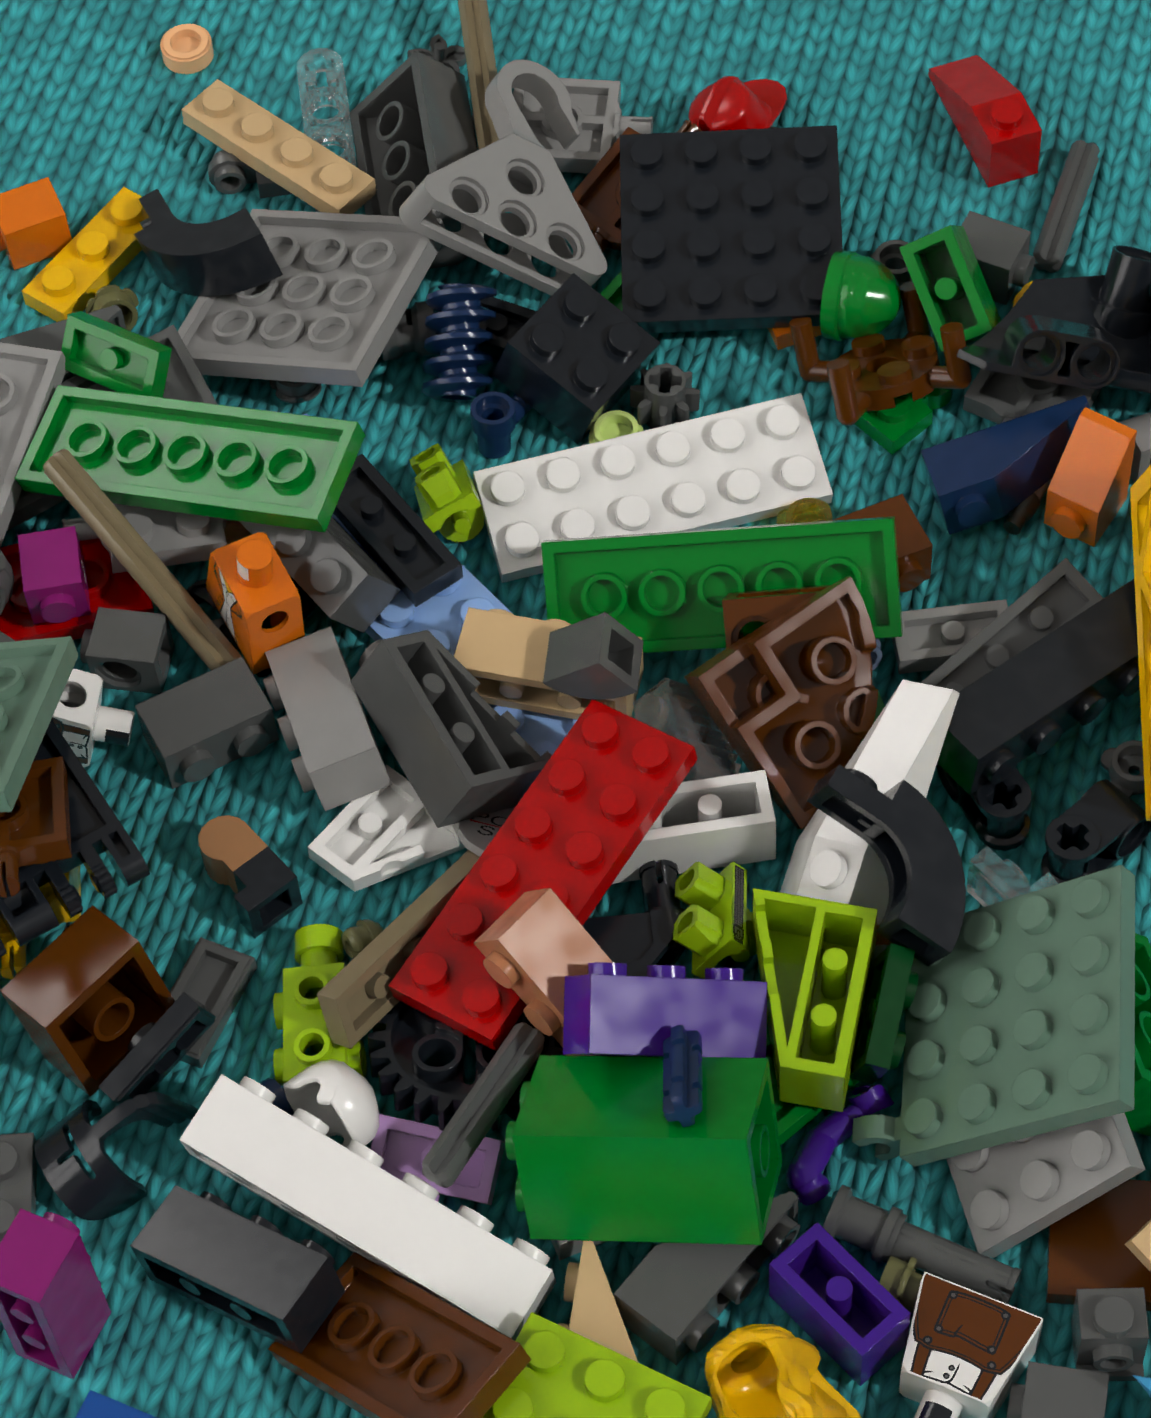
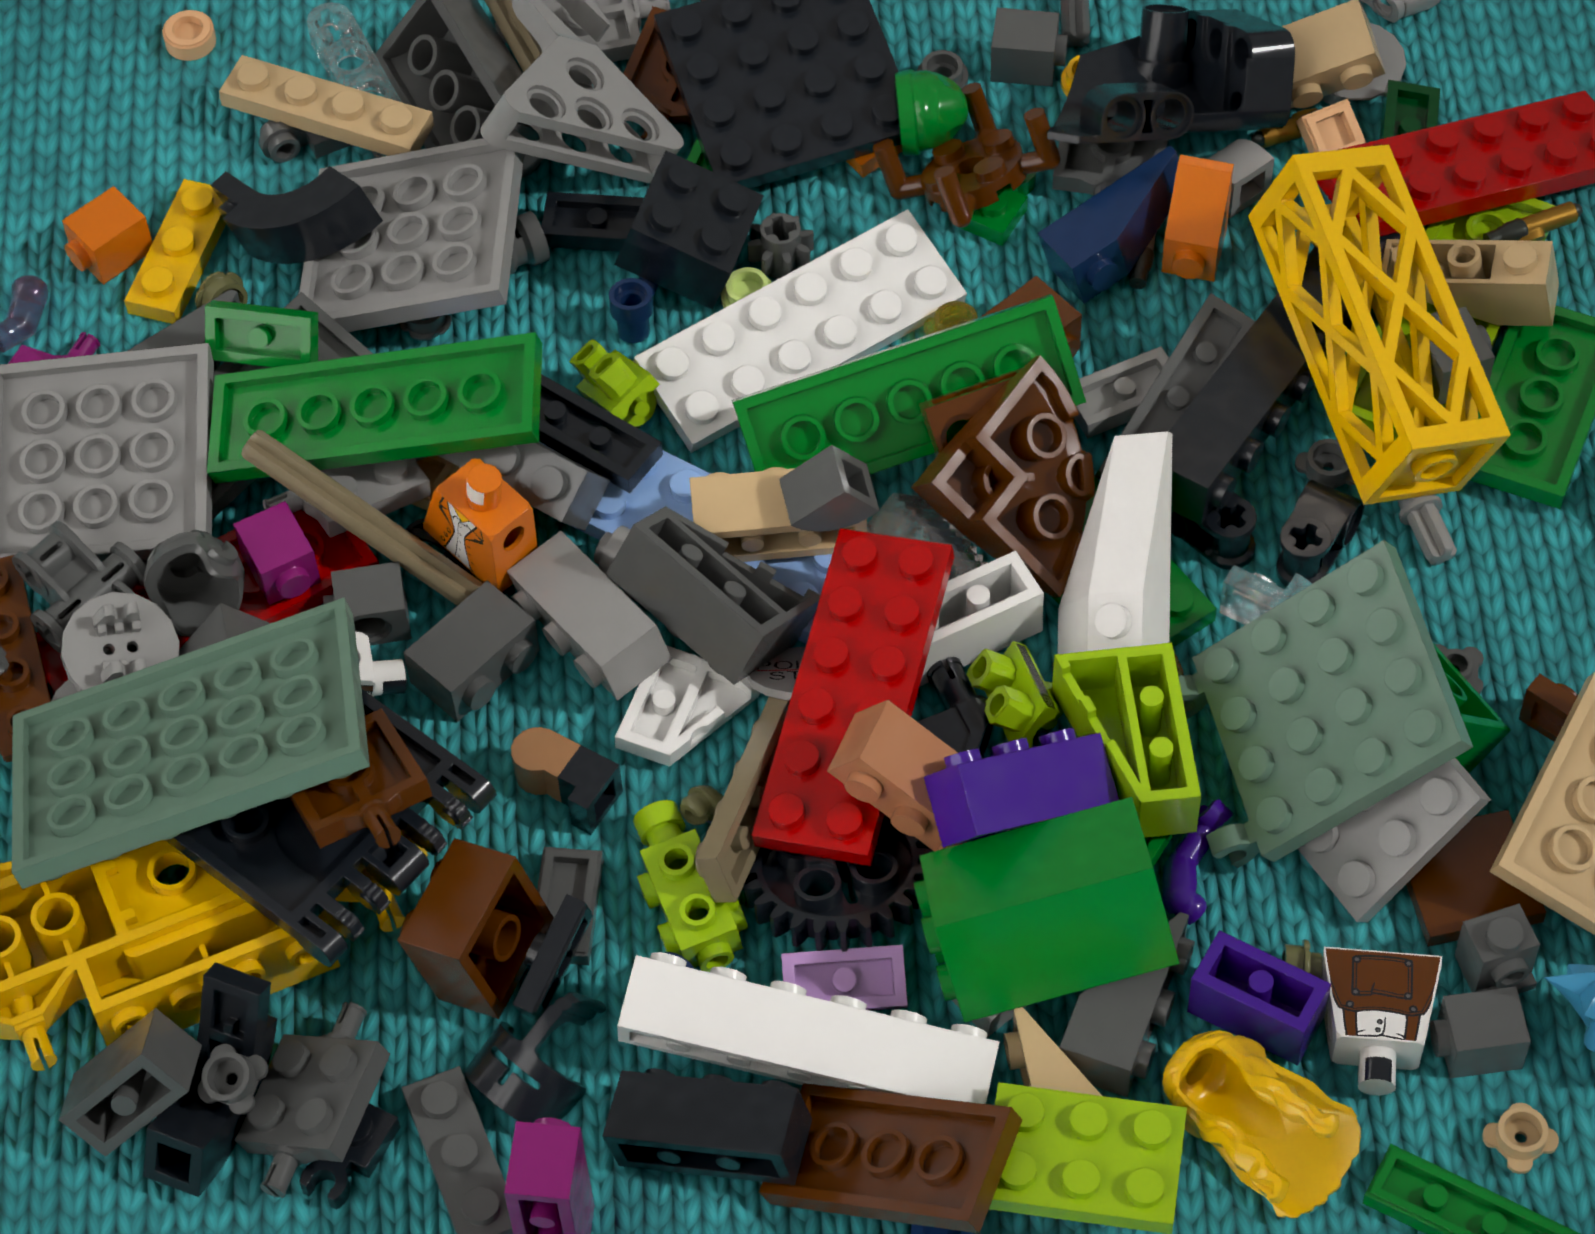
camera: 20 degrees left, 0 degrees up
(337, 1098) = (744, 946): white hair -> none
(457, 342) = (573, 242): dark blue piece -> none
(483, 1105) = (882, 915): dark grey axle -> none
(682, 1076) = (1069, 831): dark blue axle -> none
(888, 993) = (1205, 718): dark green plate -> none
(890, 1234) = (1273, 927): dark grey pin -> none
(917, 855) = (1192, 584): black arch -> none
(950, 283) = (1009, 77): green brick -> none

